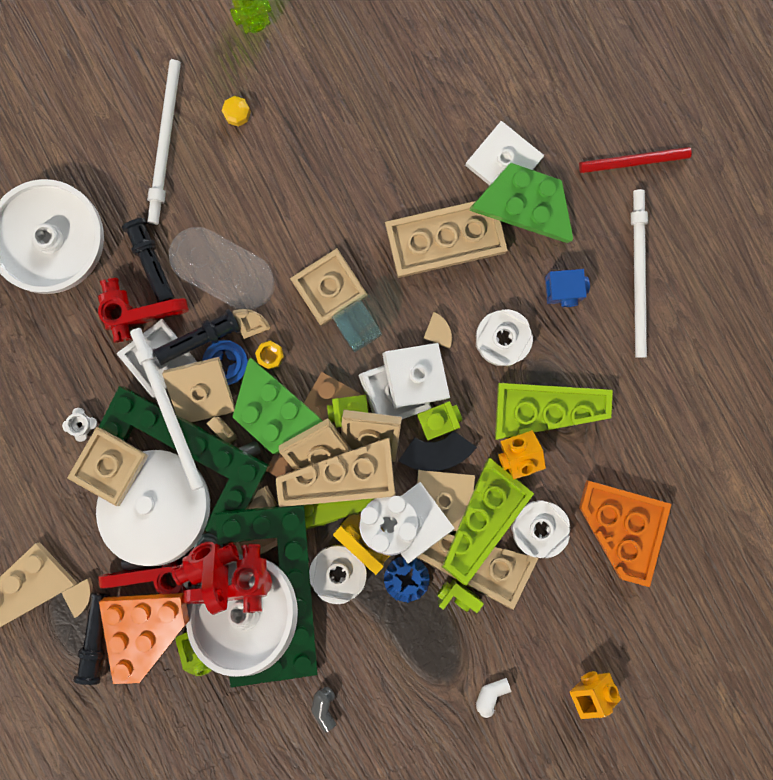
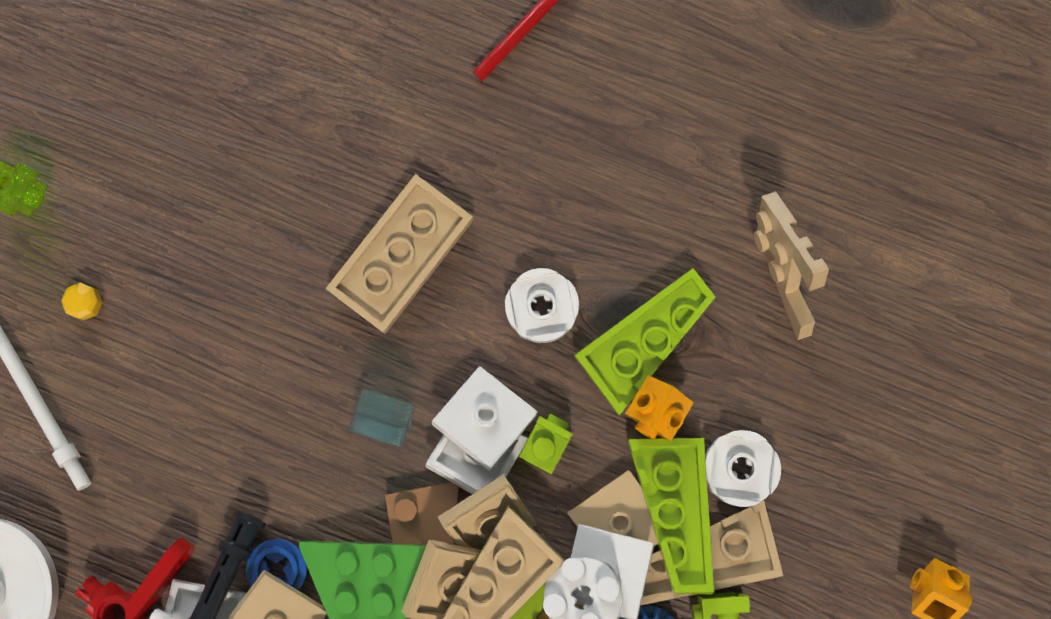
camera: 30 degrees left, 5 degrees down
(145, 250) = (96, 520): black pin -> none
(221, 268) = (194, 474): clear tile -> none
(250, 322) = (269, 505): tan tile -> none
(269, 355) = (317, 522): yellow tile -> none
(328, 286) = (320, 401): tan plate -> none
(353, 403) = (443, 501): lime bracket -> none
(437, 455) = (574, 480): black tile -> none
(438, 331) = (471, 353): tan tile -> none
(499, 150) = (396, 130): white plate -> none
(527, 201) = (452, 152): bright green wing -> none
(566, 287) = (562, 204): blue brick -> none
(626, 528) = (825, 395): orange plate -> none
(639, 219) = (578, 80): white bar -> none
(673, 431) = (788, 261): none -> tan wing

